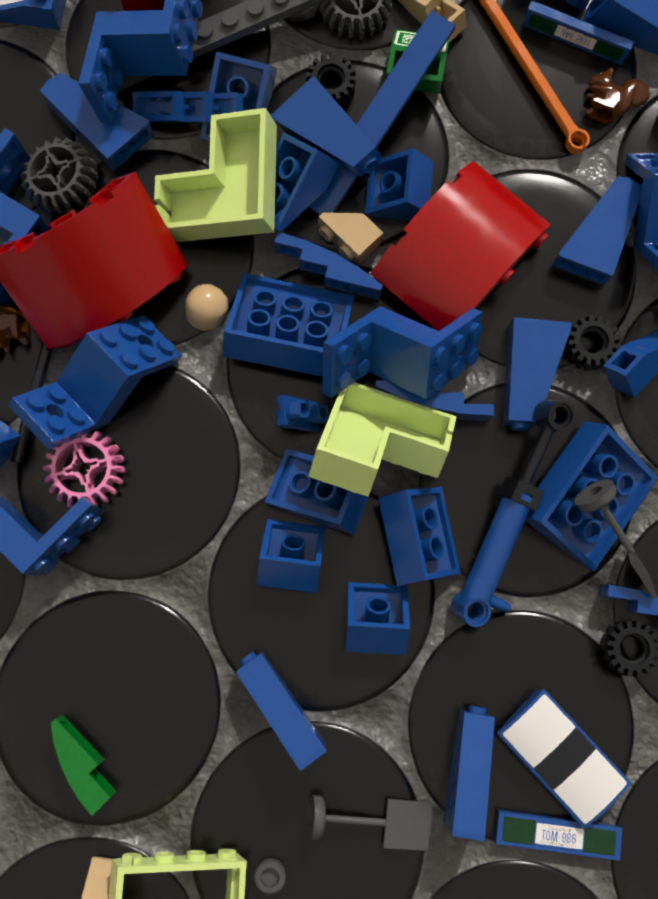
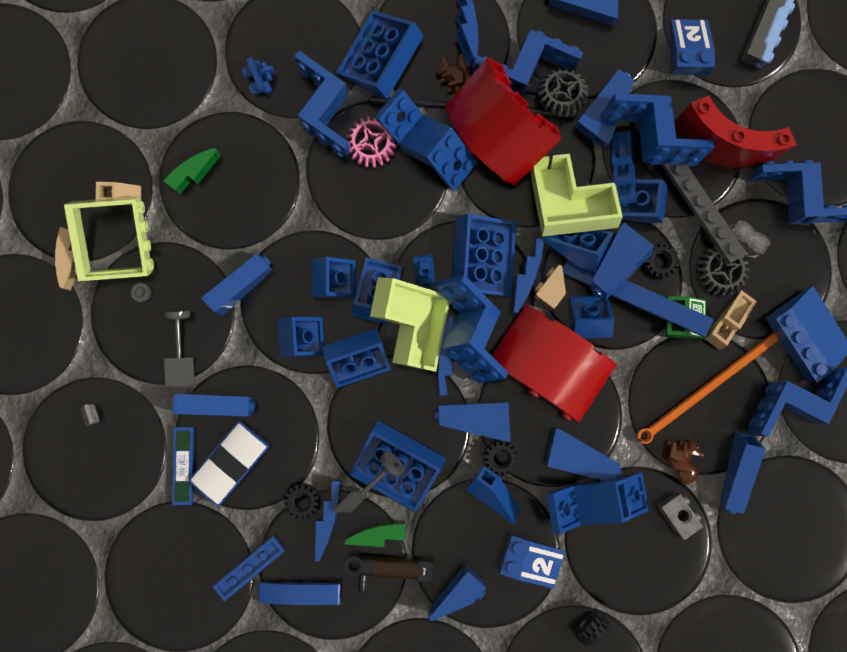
camera: 85 degrees right, 5 degrees up
(206, 307) = (489, 201): tan hair -> none
(516, 501) = (371, 412): blue piece -> none
(577, 33) = (726, 428): tile -> none

